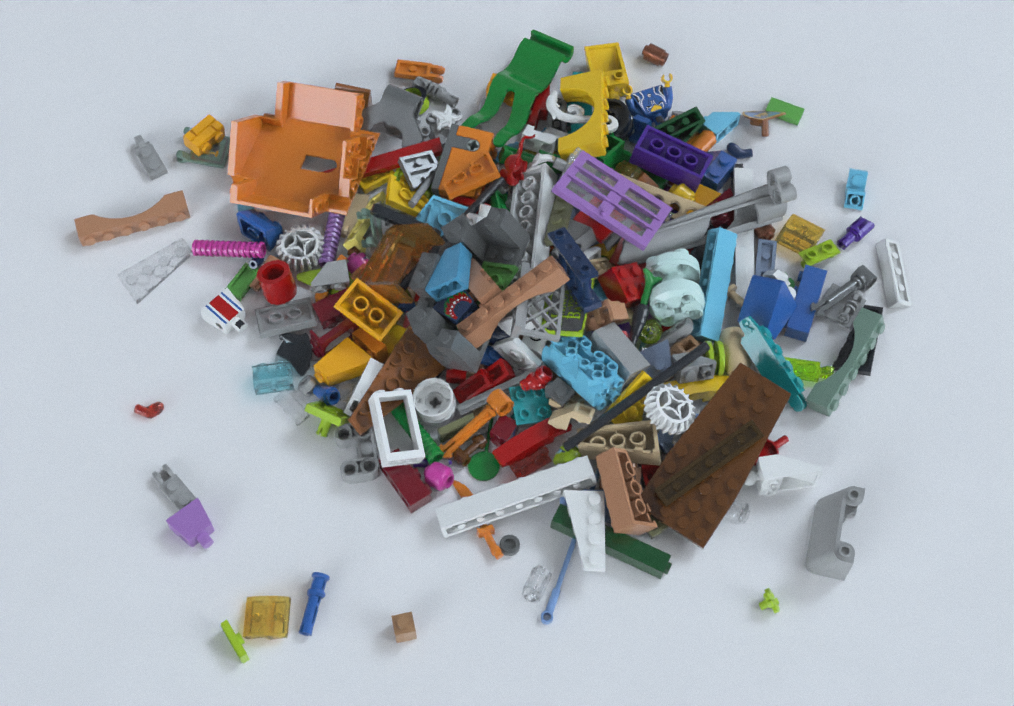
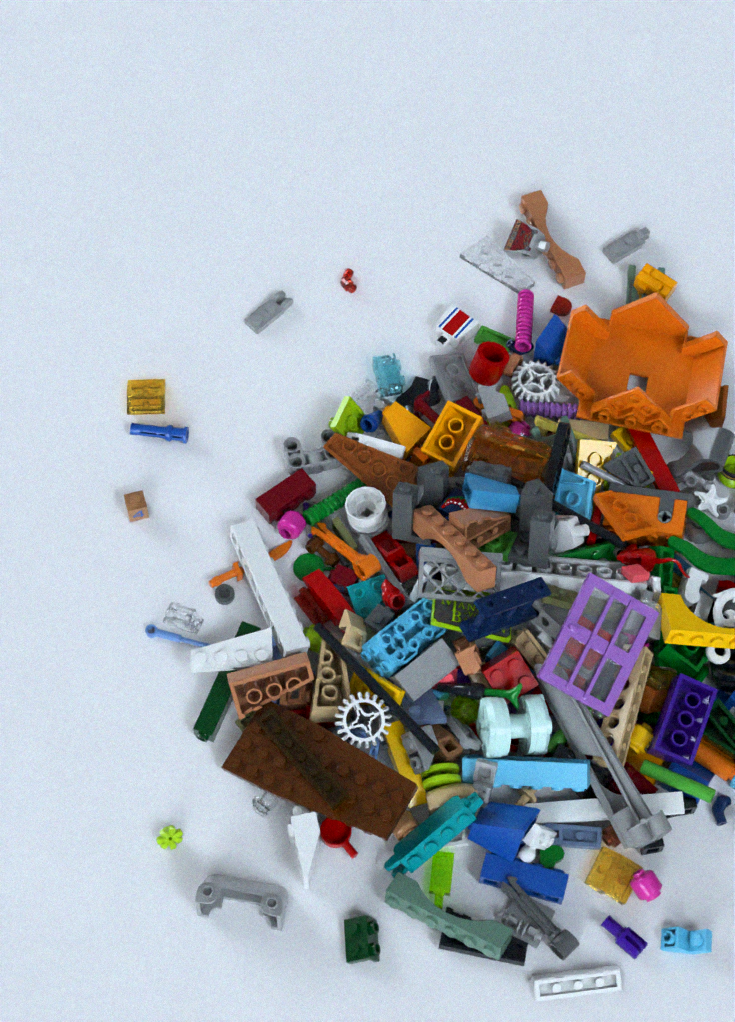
camera: 85 degrees right, 0 degrees up
(136, 236) = (525, 241): none -> torso
(192, 525) = (233, 328): medium lavender torso -> none
(211, 220) = (561, 306): none -> clear red tile
(235, 640) = (122, 373): lime plate -> none
(397, 458) = (304, 498): white window -> none
(533, 171) = (635, 573): none -> coral tile
(719, 318) = (484, 777): none -> light grey slope
(725, 170) = (677, 781): none -> bright green piece
(811, 210) = (646, 884): none -> dark pink head
(818, 253) = (589, 893): lime hinge -> none
(866, 438) = (361, 939): none -> dark green bracket

